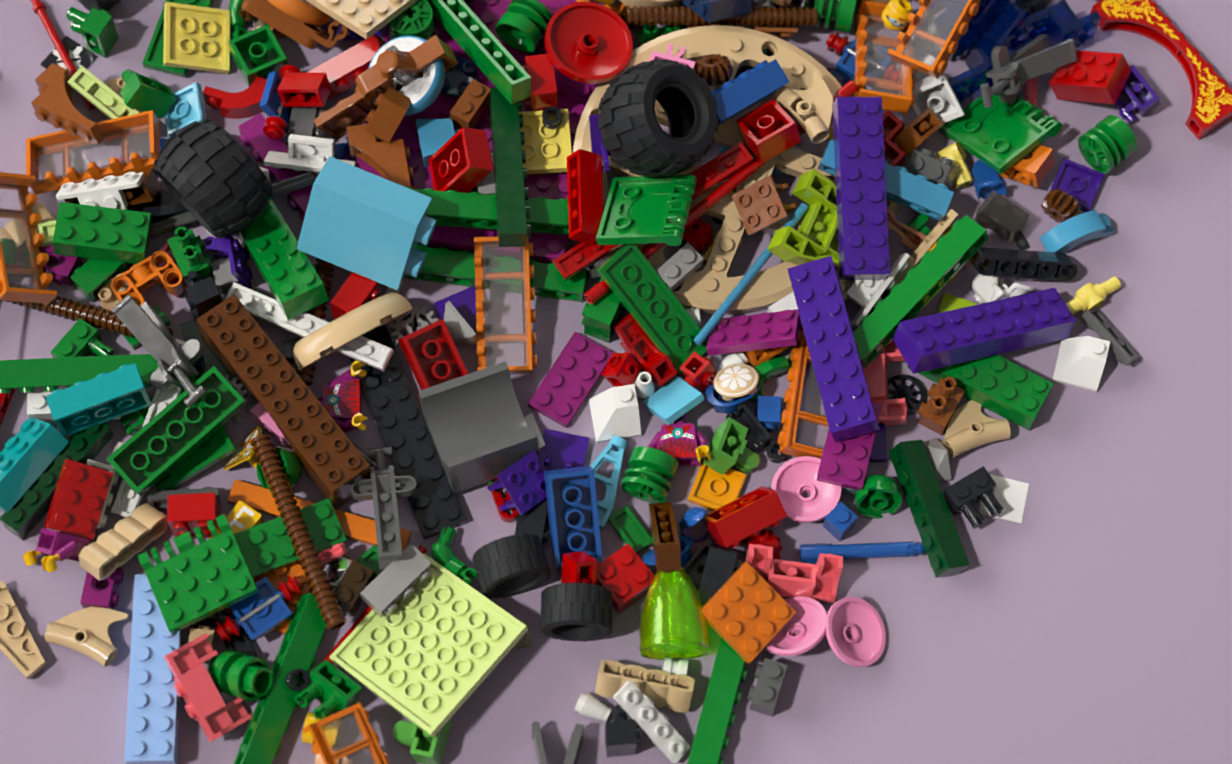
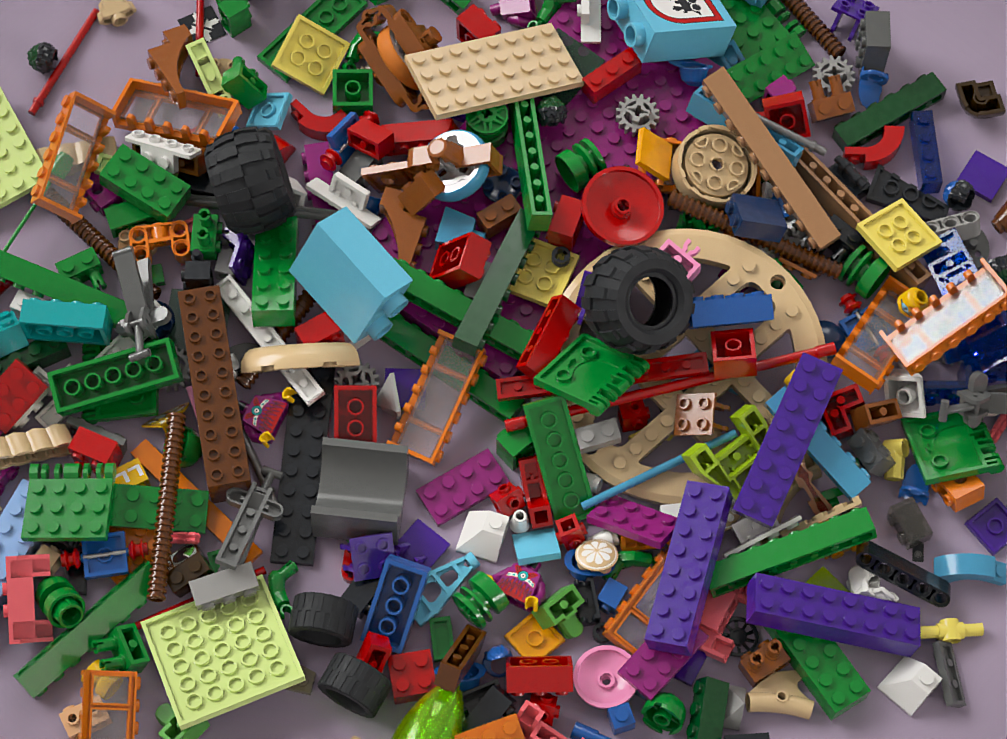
camera: 30 degrees right, 0 degrees up
(303, 675) = (109, 627): black bush -> none
(531, 422) = (407, 517): white sticker -> none
(714, 69) = (714, 279): reddish brown gear -> none
(809, 107) = (781, 349): tan pin -> none
(1060, 205) = (967, 538): reddish brown gear -> none

